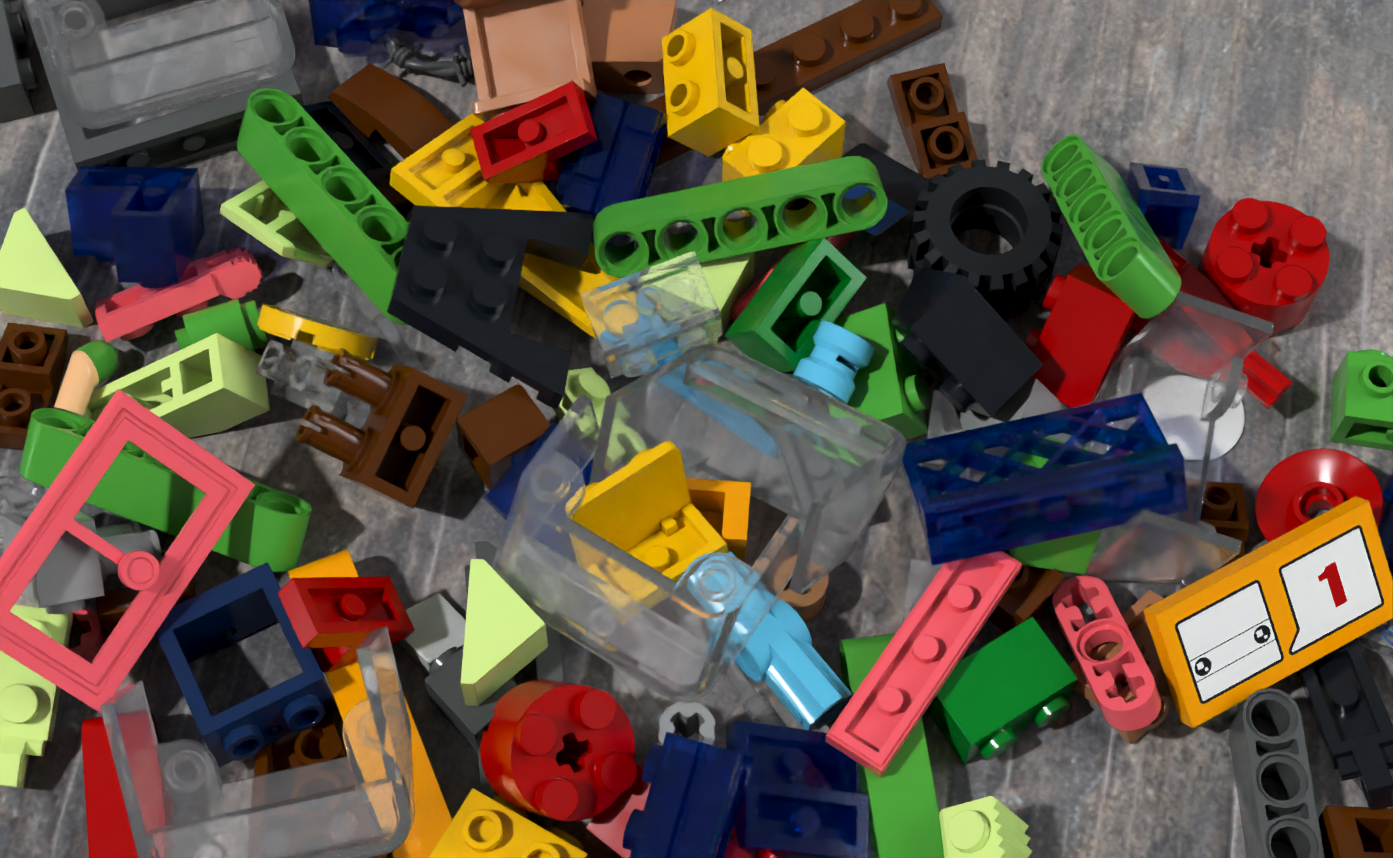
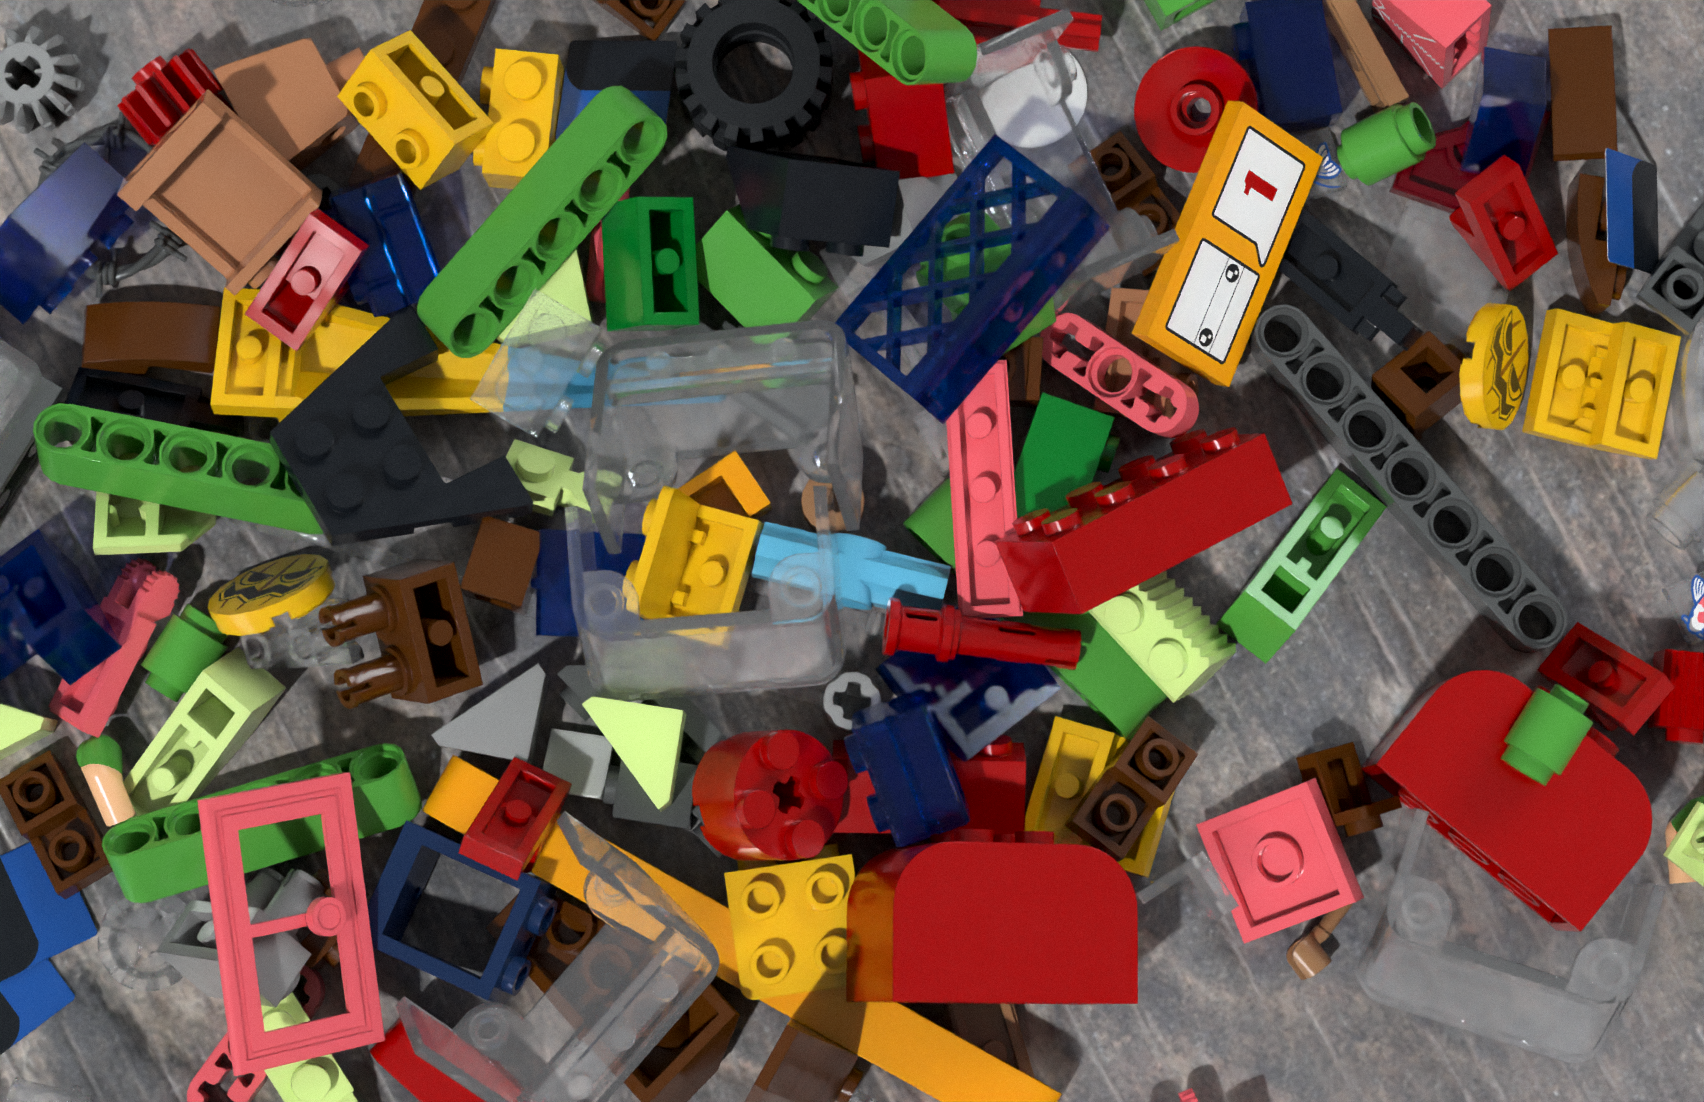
camera: 35 degrees left, 20 degrees up
(408, 551) = (502, 723): none -> light grey slope
(809, 737) = (950, 633): none -> red pin
(834, 361) = (727, 299): medium azure wheel -> none
(1044, 760) = (1143, 521): none -> red brick

